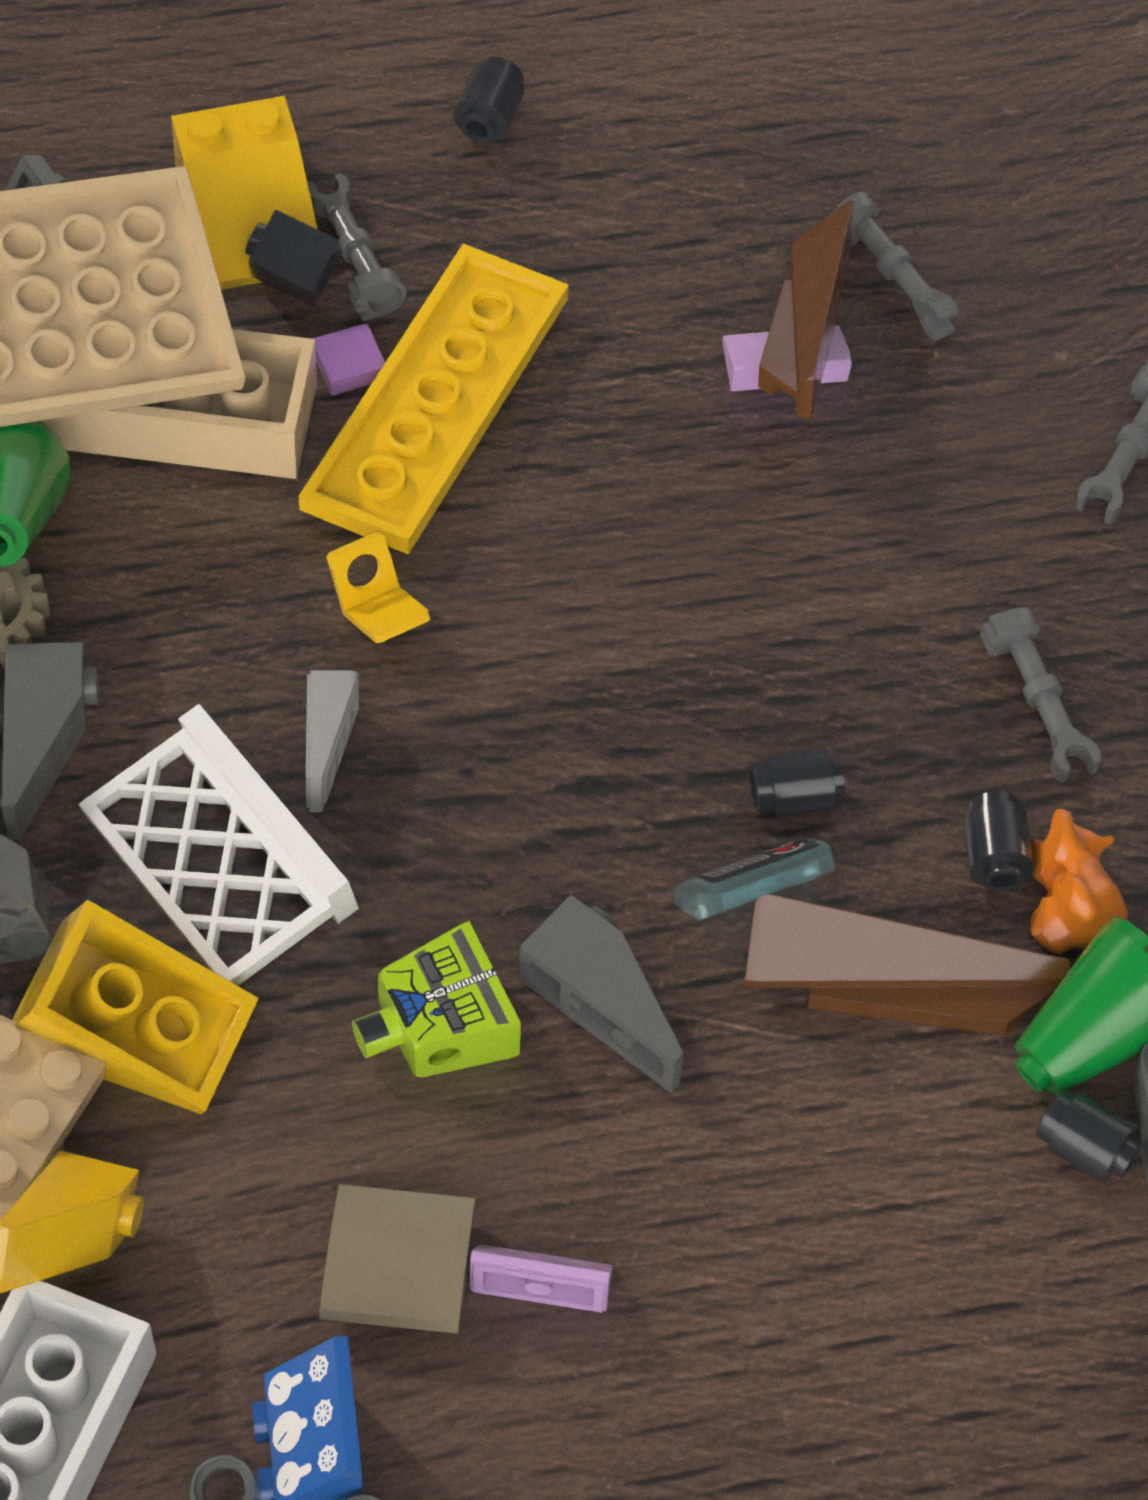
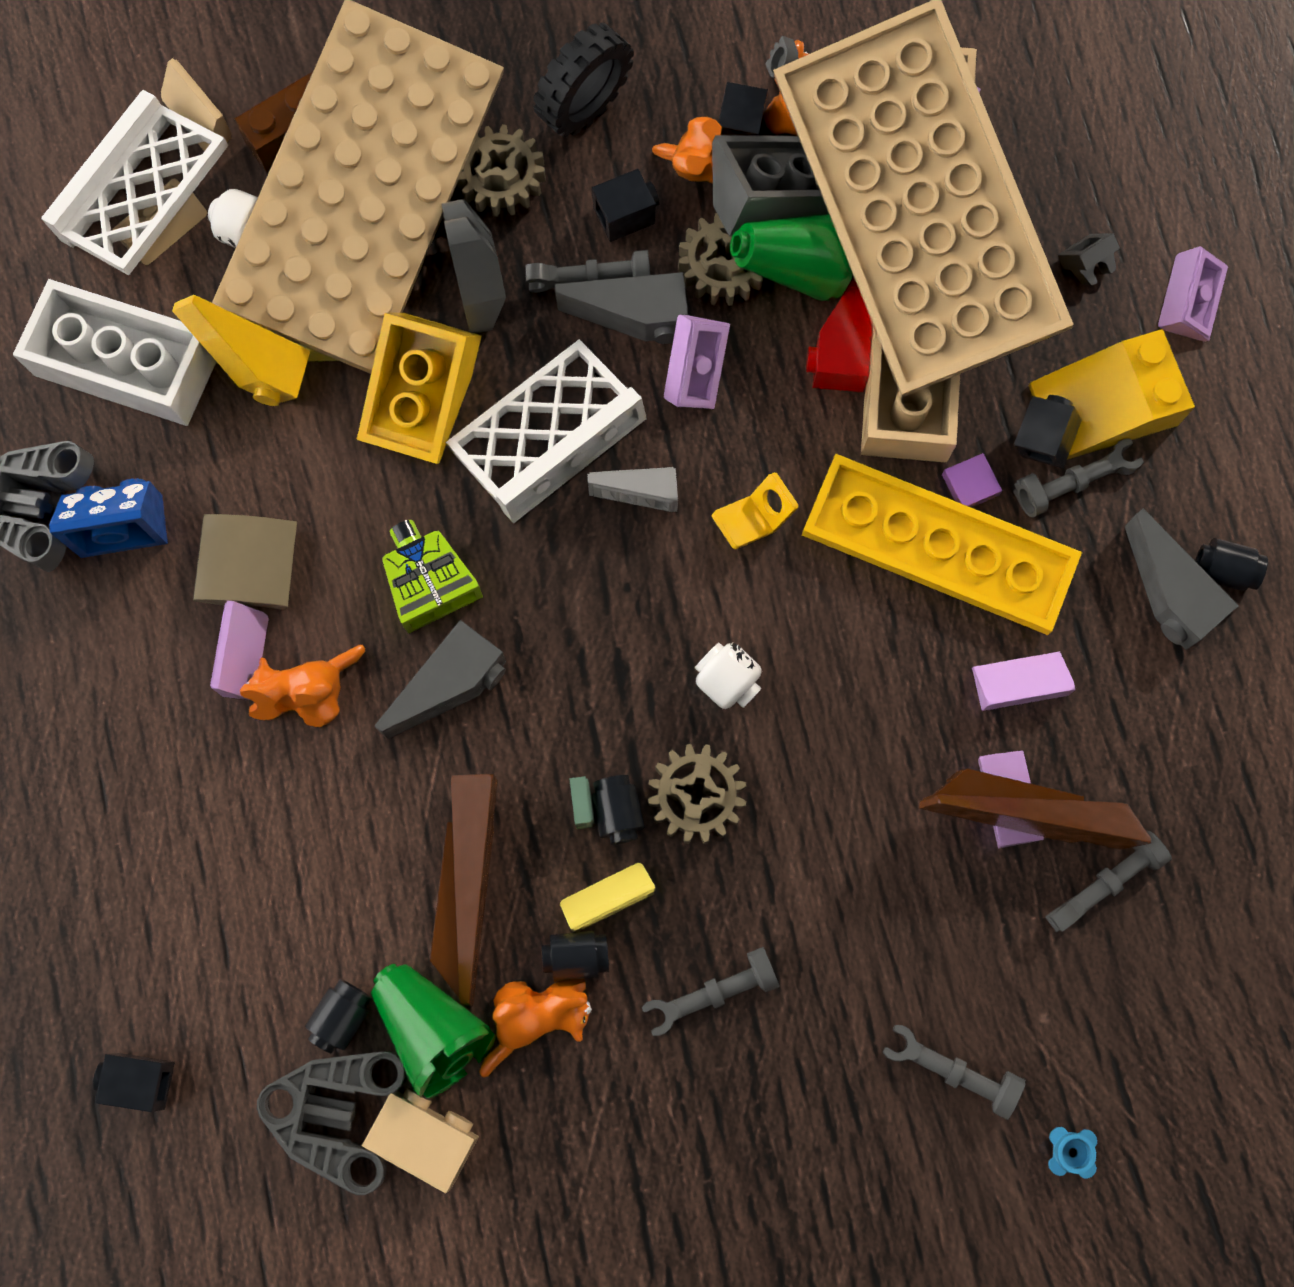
camera: 90 degrees right, 20 degrees up
(104, 104) = (1193, 294): none -> lavender slope
(132, 473) = (843, 346): none -> red slope
(142, 649) = (696, 362): none -> lavender slope
(509, 158) = (1178, 589): none -> dark grey slope
(609, 1171) = (307, 689): none -> orange animal
(612, 639) = (728, 675): none -> white head
(629, 329) = (1022, 681): none -> lavender slope
(754, 877) = (520, 776): clear light blue slope -> none
(784, 821) = (582, 802): none -> sand green tile
(801, 705) = (718, 798): none -> dark tan gear
(917, 804) = (607, 897): none -> light yellow slope

